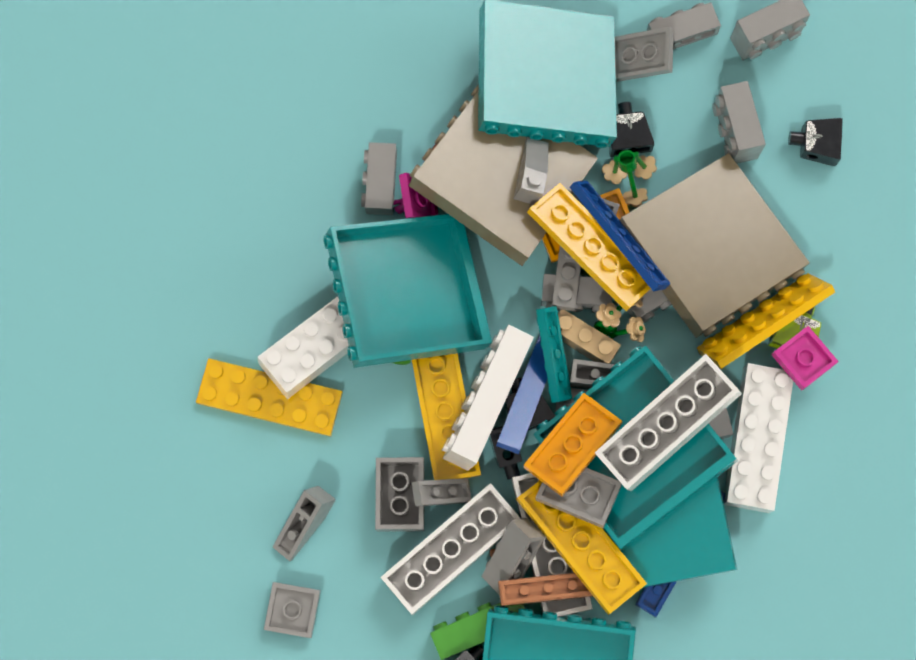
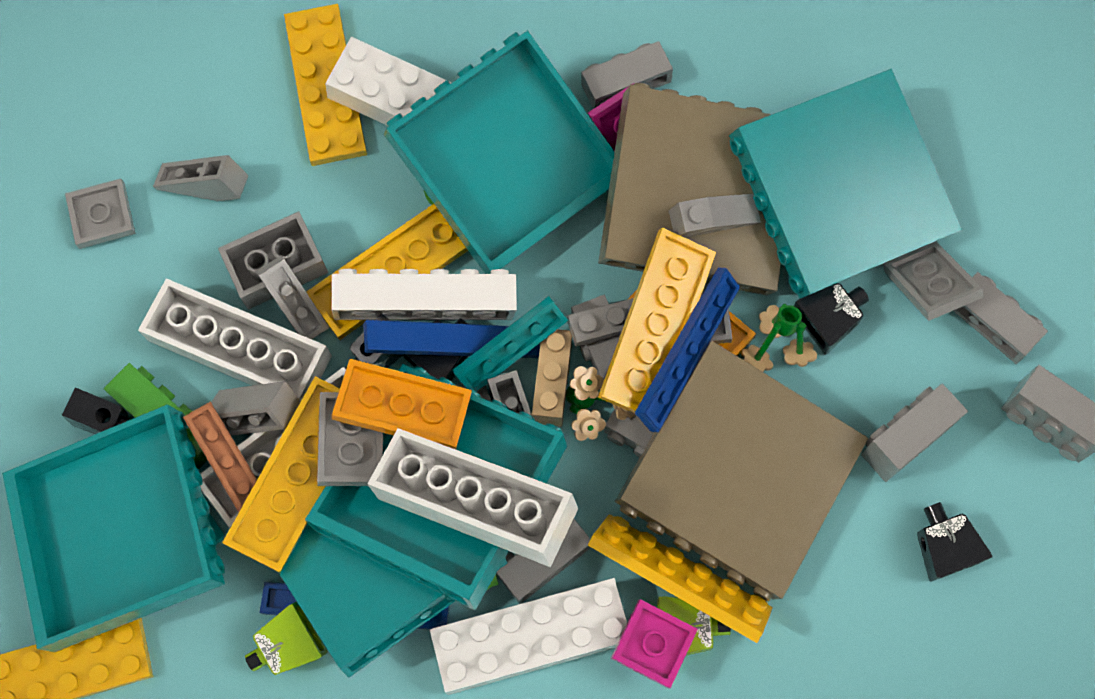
camera: 65 degrees right, 5 degrees down
(688, 605) = (286, 642): none -> lime torso

